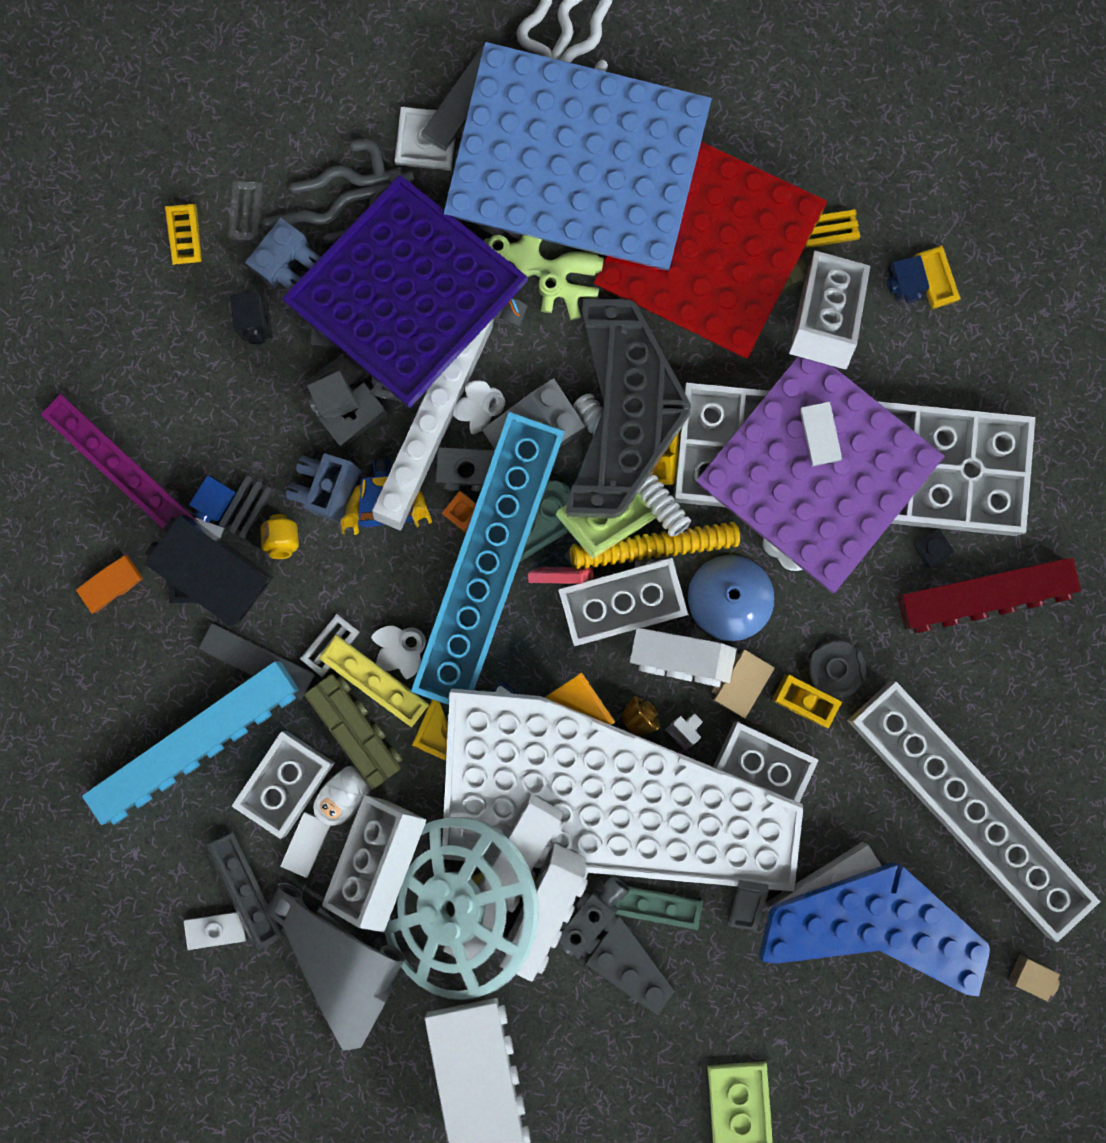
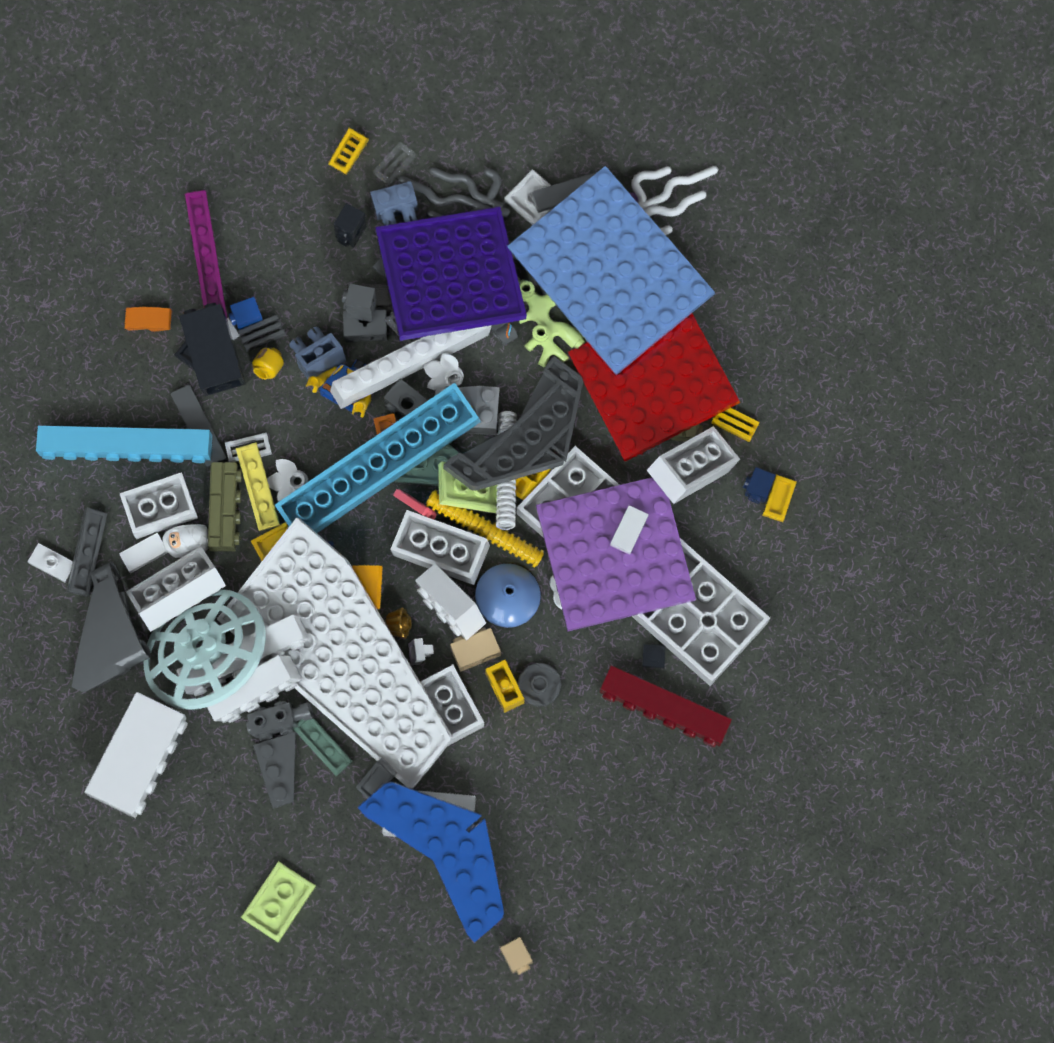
camera: 35 degrees right, 10 degrees down
(973, 811) = (555, 825): white brick -> none

